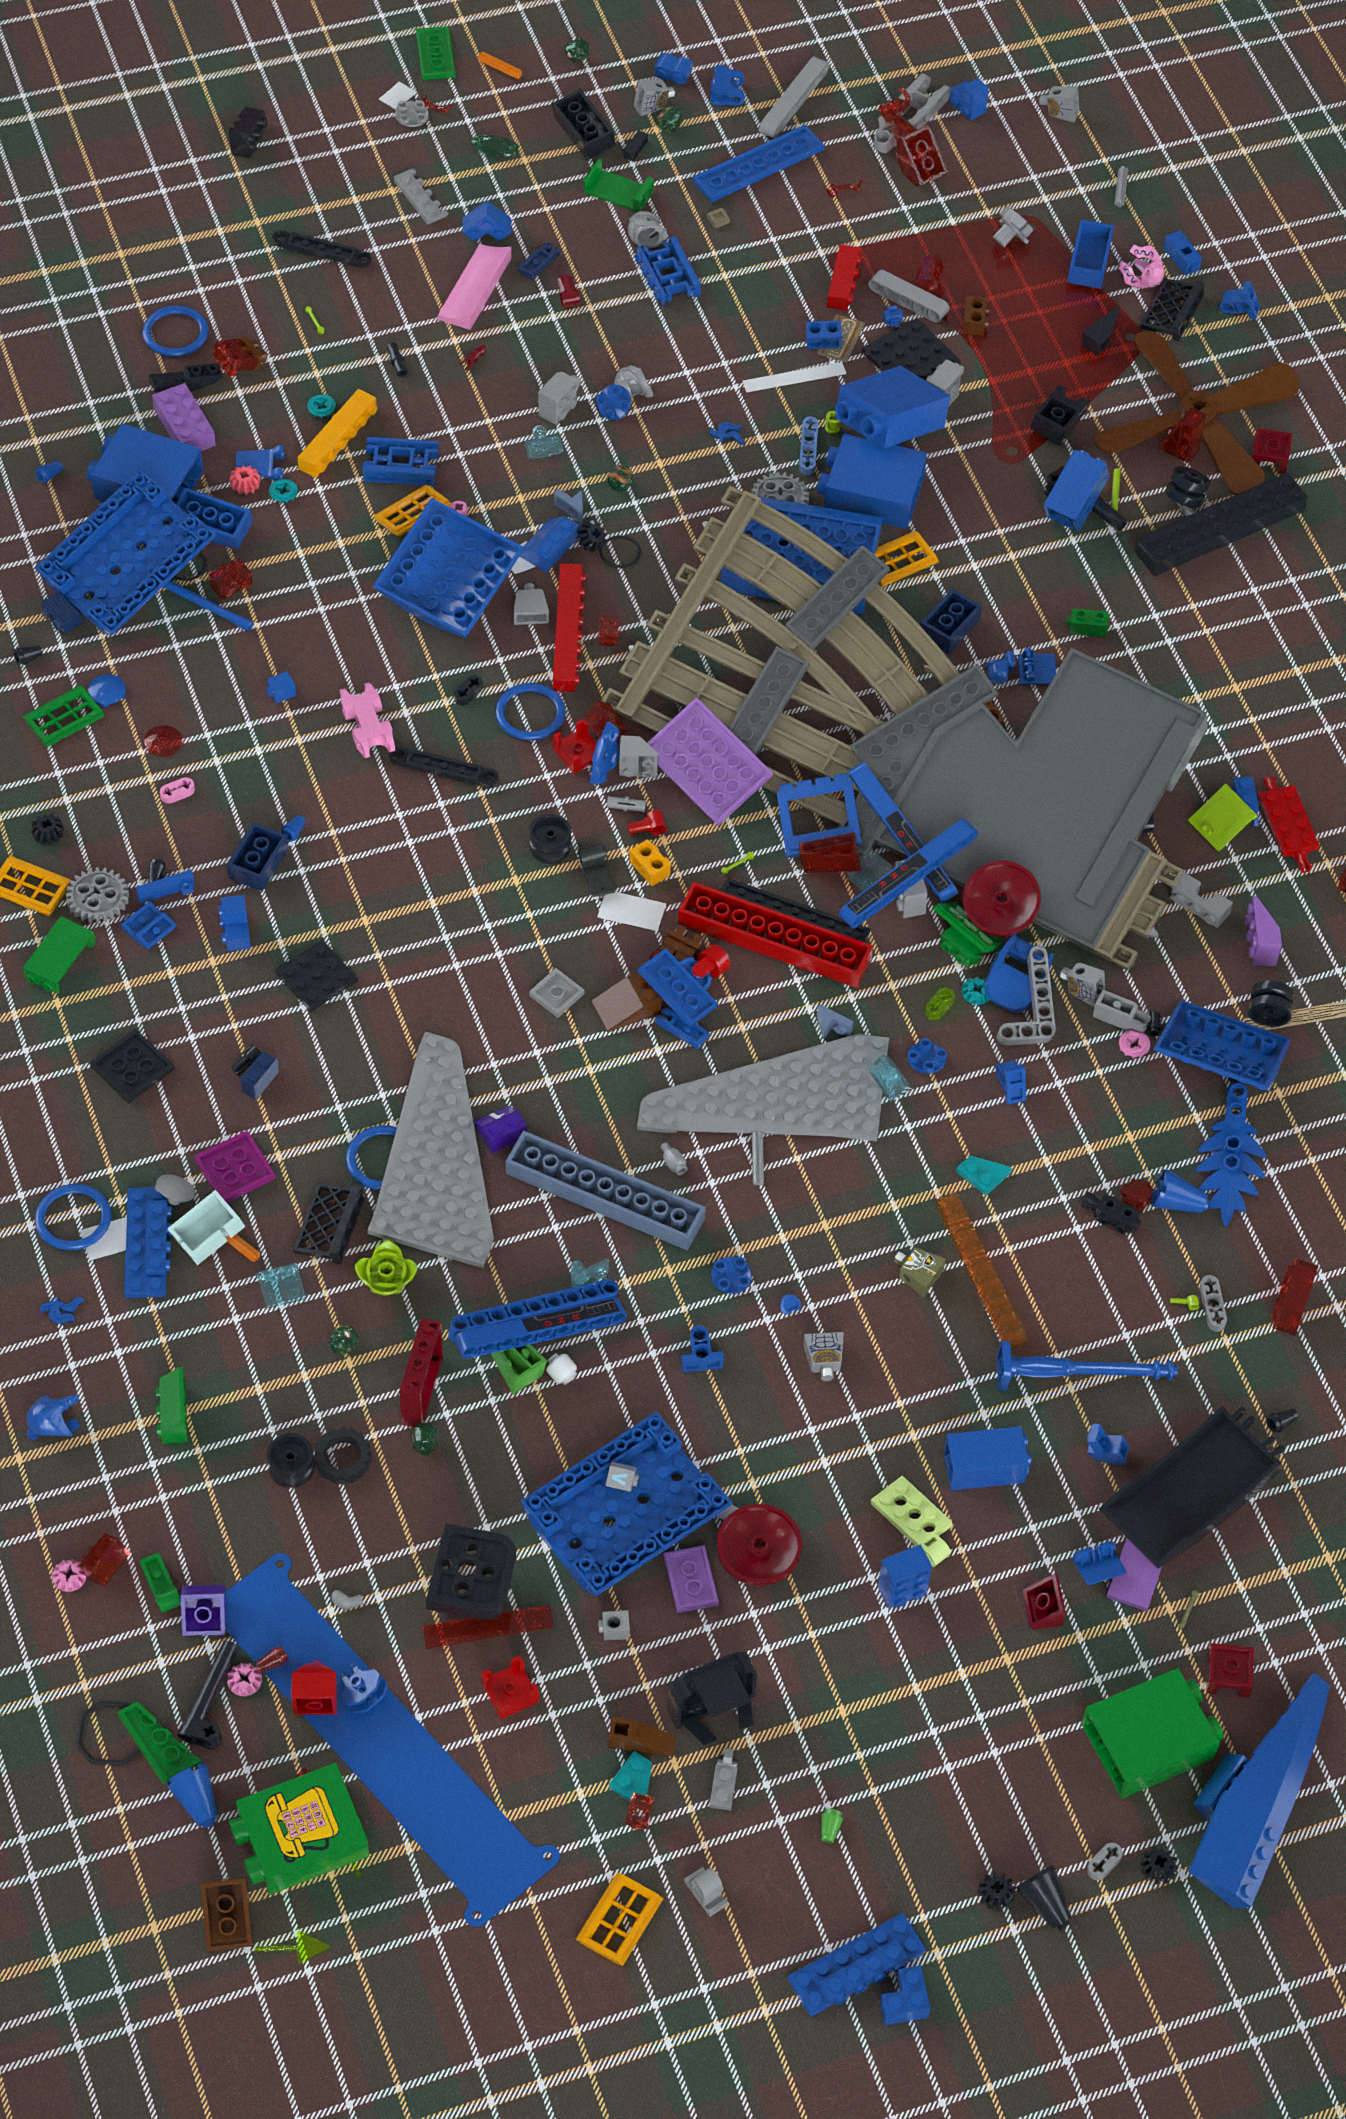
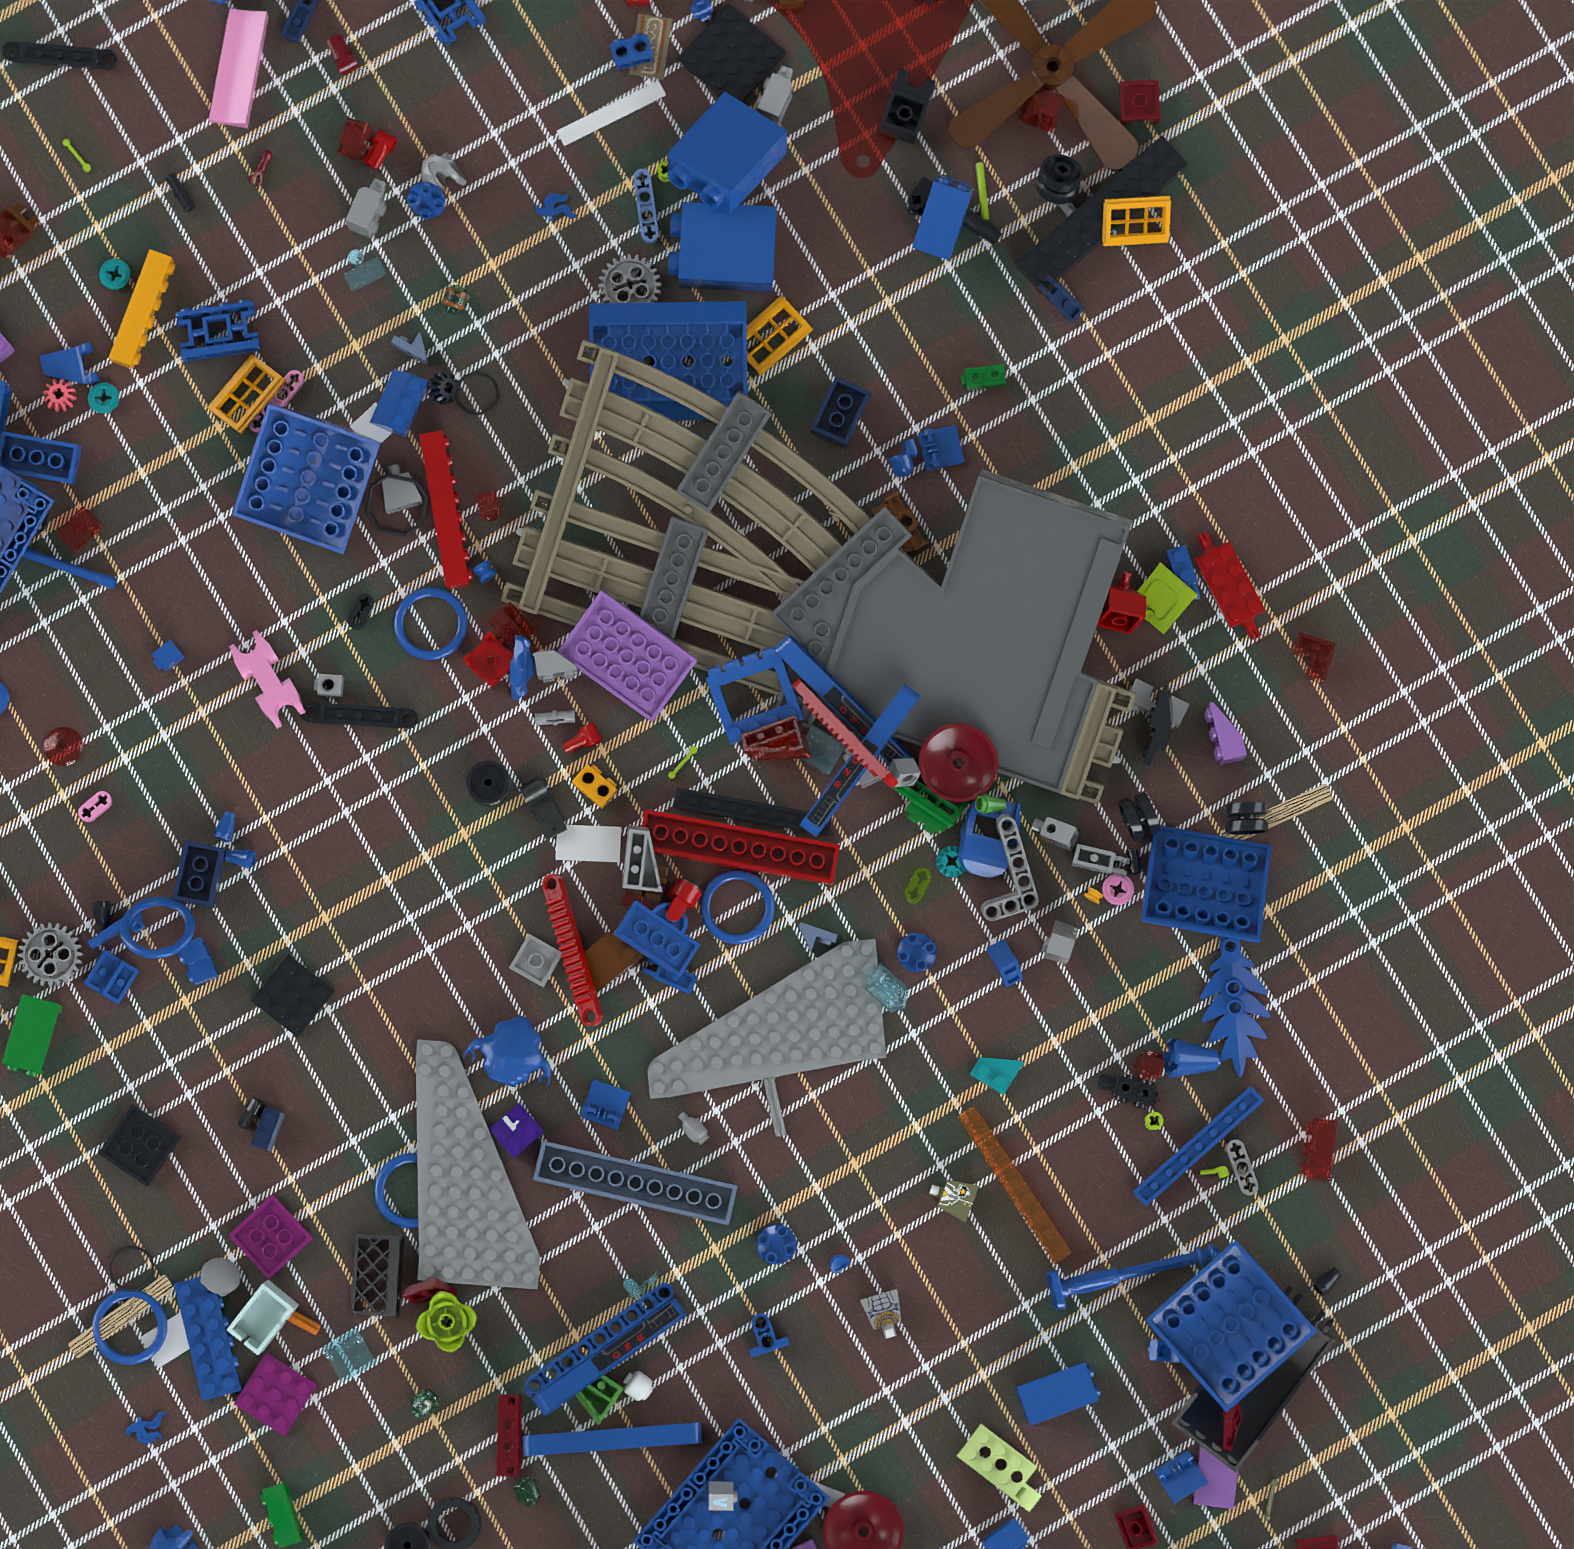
camera: 10 degrees left, 25 degrees up
(67, 1205) = (120, 1316): none -> tan sticker
(90, 1152) = (124, 1249): none -> black piece
(198, 1305) = (275, 1394): none -> magenta plate
(204, 894) = (164, 952): none -> blue wedge
(303, 855) = (244, 858): none -> blue cone
(368, 1239) = (426, 1290): none -> dark red wing
(423, 737) = (336, 691): none -> light grey brick
(512, 1058) = (511, 1052): none -> blue piece
(523, 1411) = (612, 1439): none -> blue beam
(533, 590) = (398, 478): none -> black piece
(562, 347) = (353, 139): none -> clear red brick
(585, 359) = (382, 145): none -> red piece
(591, 679) = (484, 571): none -> blue wheel
(592, 1123) = (605, 1104): none -> blue hinge
(593, 988) = (571, 950): none -> red gear
(678, 916) = (640, 864): none -> light grey wedge
(765, 1013) = (737, 875): none -> blue wedge
(899, 845) = (844, 735): none -> gear
(945, 890) = (904, 771): none -> light grey brick
(1023, 940) = (989, 804): none -> bright green cone
(1068, 1069) = (1060, 943): none -> light grey wedge
(1109, 1043) = (1093, 895): none -> light orange bush
(1132, 1243) = (1154, 1127): none -> lime bush
(1163, 1516) = (1232, 1422): none -> dark red wing
(1167, 981) = (1139, 816): none -> black wheel
(1172, 574) = (1062, 300): none -> dark blue hinge
(1172, 1274) = (1198, 1146): none -> blue plate
(1177, 1417) = (1231, 1325): none -> blue slope
(1181, 813) = (1123, 607): none -> red piece
(1204, 905) = (1162, 719): none -> black slope
(1253, 546) = (1136, 238): none -> light orange piece

